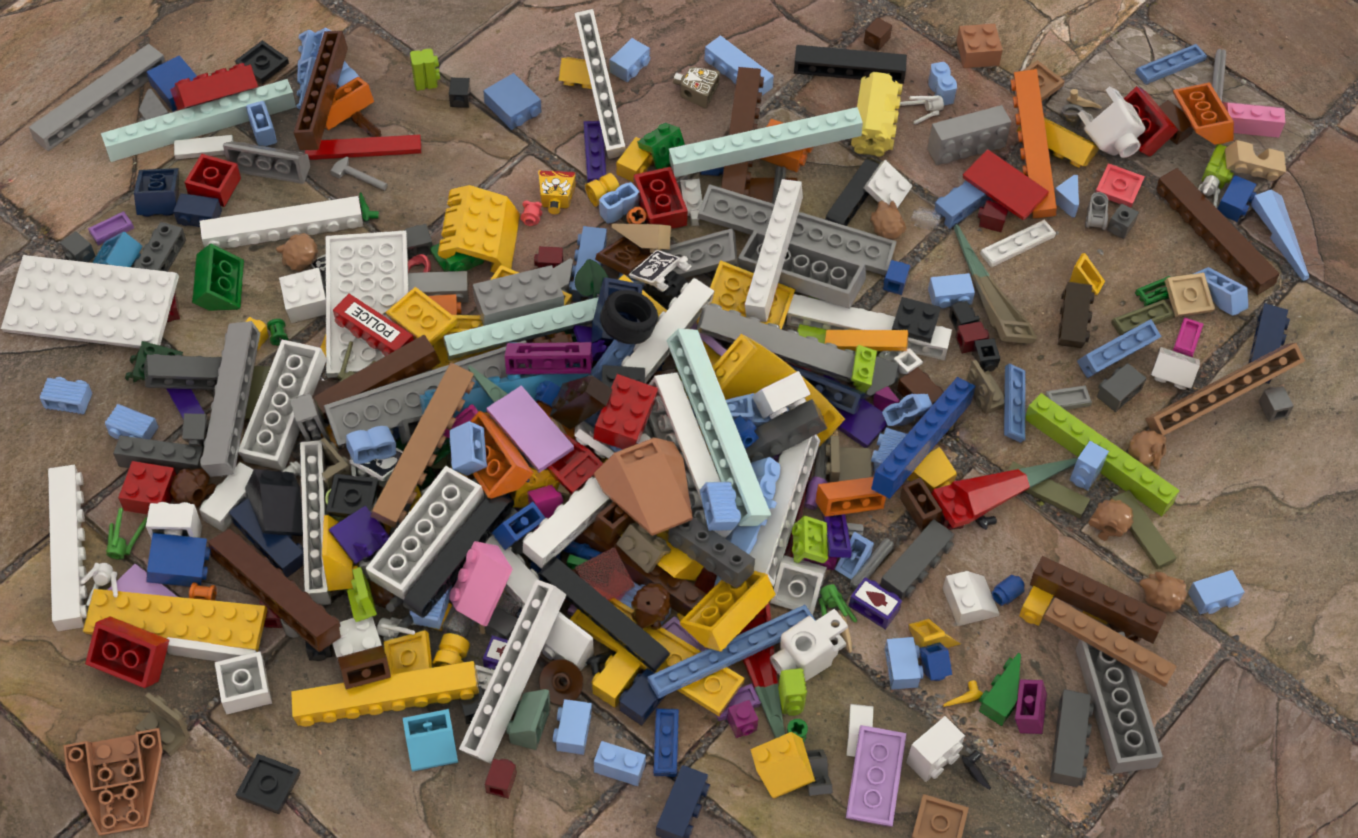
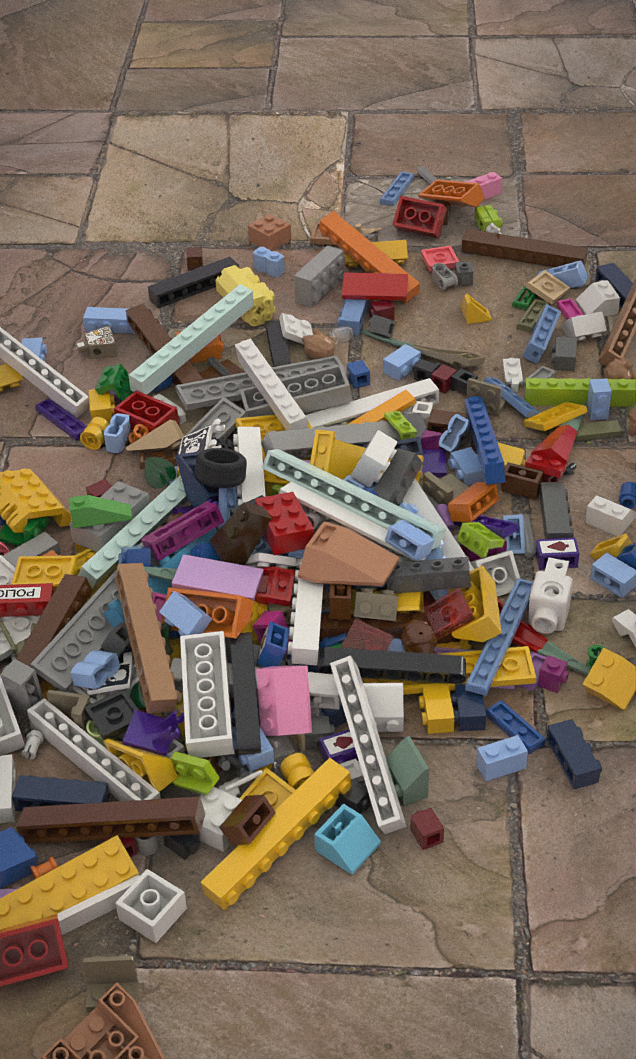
camera: 35 degrees left, 15 degrees down
(268, 783) = (246, 964): black plate -> none
(276, 502) = (46, 761): black slope -> none
(486, 359) = (135, 555): none -> blue brick
(497, 289) = (93, 510): none -> bright green slope
(531, 213) = (54, 475): coral brick -> none
(551, 680) = (400, 725): reddish brown dish -> none
(556, 189) = (57, 452): yellow torso -> none
(573, 726) = (442, 759): light blue brick -> none
(590, 242) = (126, 470): medium blue brick -> none
(595, 661) = (409, 709): black bar -> none
(693, 600) = (449, 613): none -> clear red tile
(792, 691) = (569, 632): lime brick -> none
(832, 598) = (526, 567): bright green plant -> none
(917, 318) = (402, 380): black plate -> none
(932, 103) = (274, 276): white plant -> none
(973, 235) = (382, 325): none -> dark grey brick
(1017, 243) = (412, 319): white tile -> none
(1031, 454) = (555, 416): none -> yellow tile
(1048, 374) = (512, 373): none -> white hinge
(1067, 196) = (421, 276): light blue slope -> none
(1075, 315) = (494, 331): dark brown wedge -> none
(1115, 127) = (409, 225): white piece -> none
(1225, 345) = (599, 297): none -> white slope
(1236, 198) = (516, 226): blue brick -> none
(1267, 165) = (513, 204): tan arch -> none
(1274, 214) = (563, 235): light blue wedge -> none

